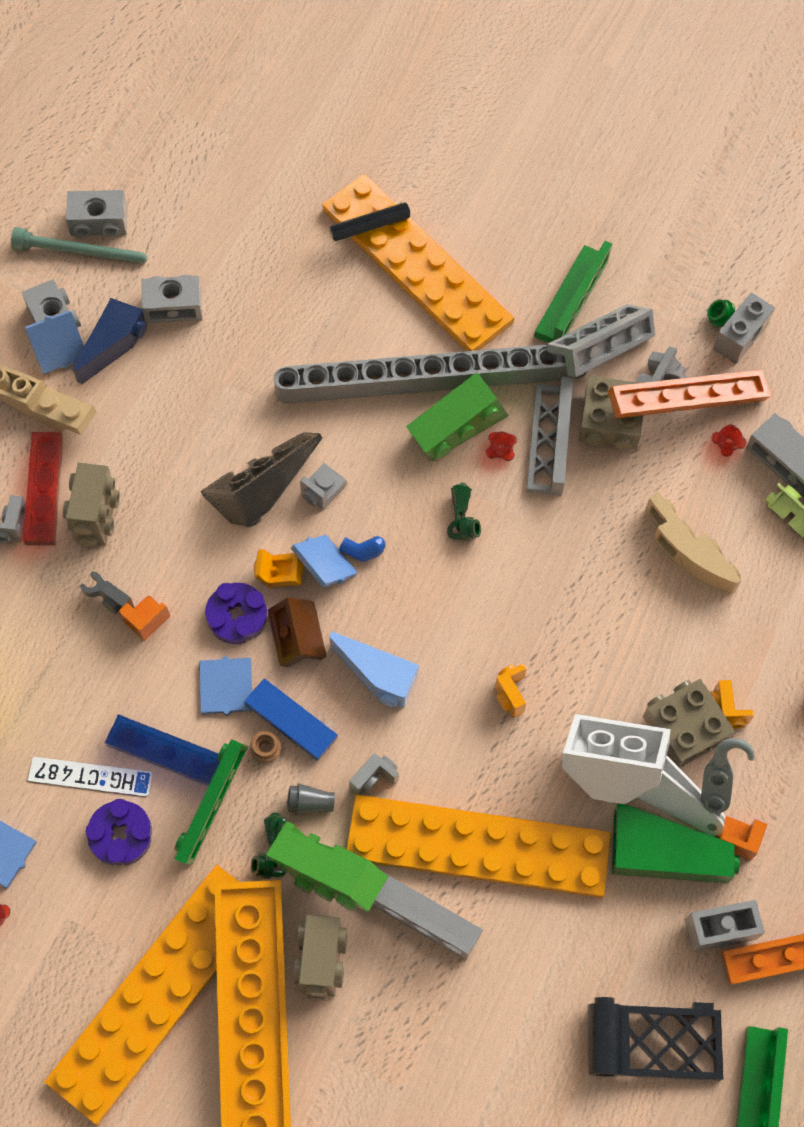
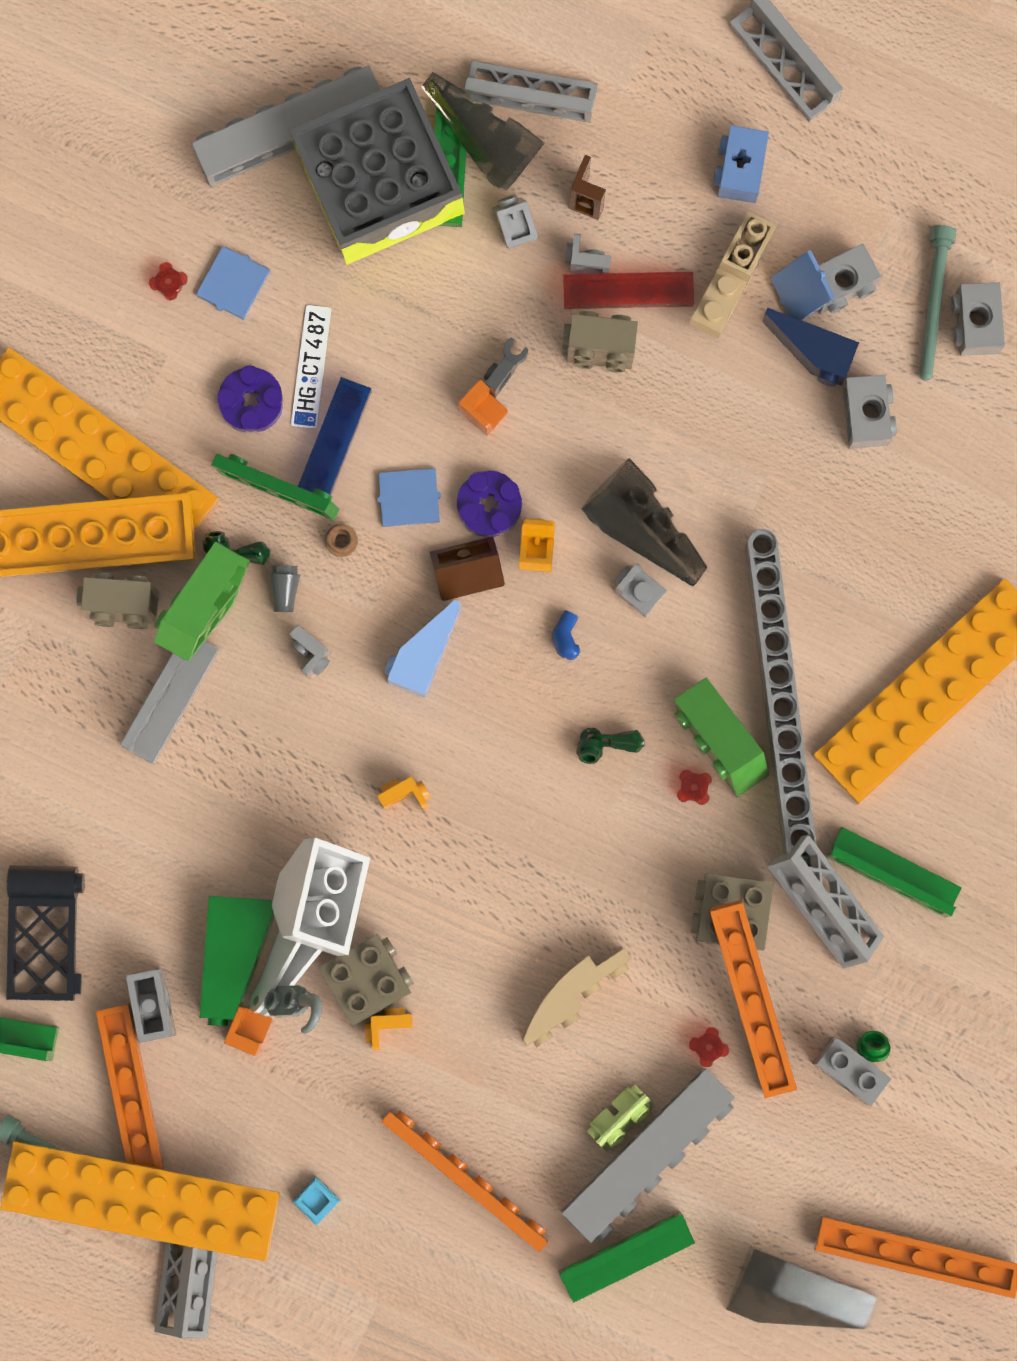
camera: 90 degrees right, 15 degrees up
(290, 719) = (370, 565): blue tile -> none
(324, 560) = (546, 593): medium blue piece -> none
(370, 221) = (975, 632): black axle -> none
(480, 846) = (239, 761): light orange plate -> none
(561, 435) = (706, 854): light grey fence -> none
(665, 367) = (785, 977): light grey hips -> none

